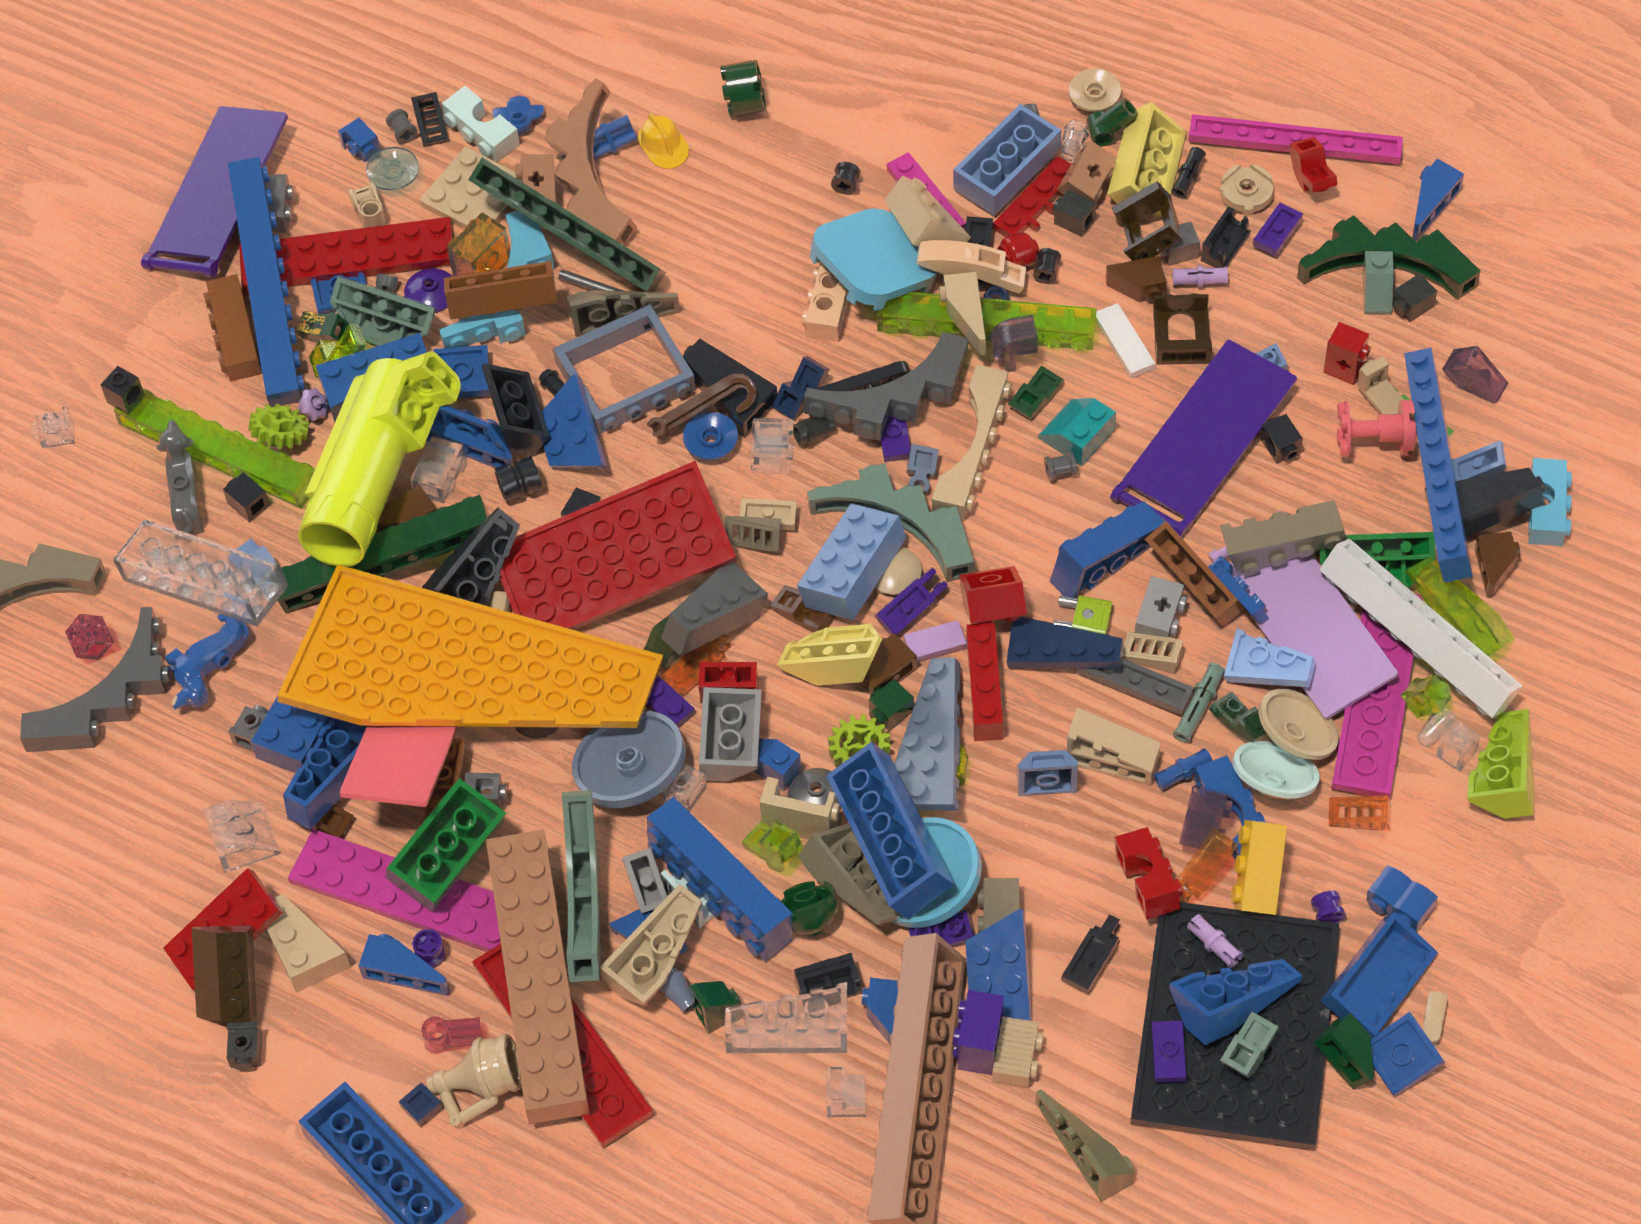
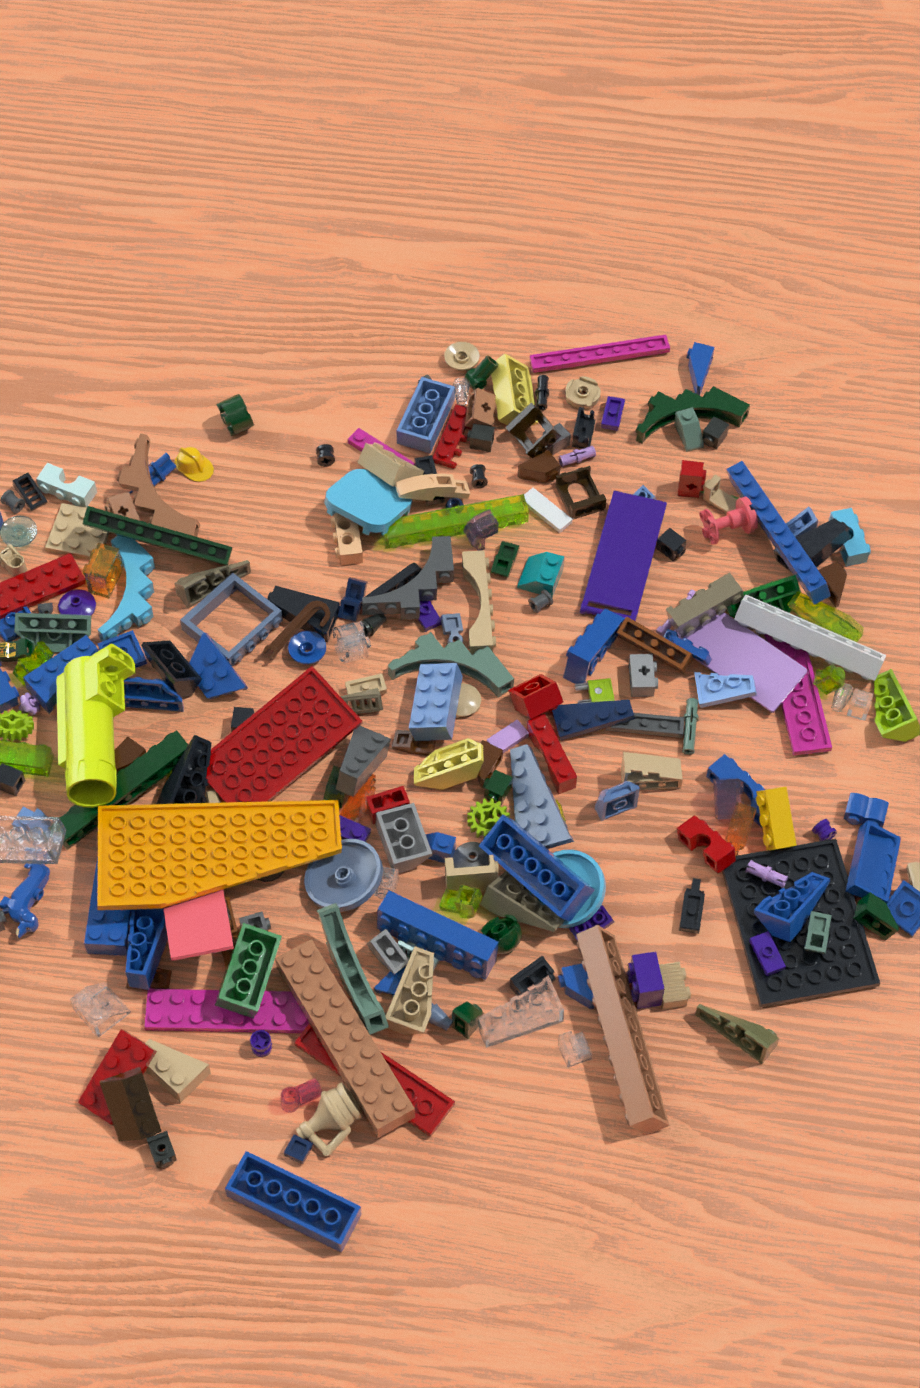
camera: 25 degrees left, 0 degrees up
(247, 726) = (73, 939): flat silver brick -> none
(395, 964) = (242, 1061): blue slope -> none
(439, 468) = (135, 721): clear brick -> none
(500, 290) = (131, 591): dark orange brick -> none
(518, 478) = (194, 710): black wheel -> none
(520, 113) = (89, 470): blue plate -> none
(550, 380) = (187, 643): black pin -> none
(584, 282) = (180, 570): flat silver bar -> none
(909, 603) = (482, 718): dark purple hinge -> none
(964, 307) = (442, 517): tan slope -> none
(999, 900) = (624, 898): dark tan brick -> none
(1000, 964) = (639, 932): blue wing -> none
(1020, 249) = (459, 469): red head -> none
(1158, 661) = (646, 696): tan slope -> none
(1181, 769) = (698, 771): blue pin -> none
(1238, 718) = (724, 730): slope -> none
(1274, 771) = (757, 754): light aqua dish -> none
(1297, 725) = (758, 721): tan dish -> none
(1310, 165) = (617, 369): red brick -> none
(1360, 822) = (826, 769): clear orange slope -> none
(1475, 373) = (771, 469): slope -> none

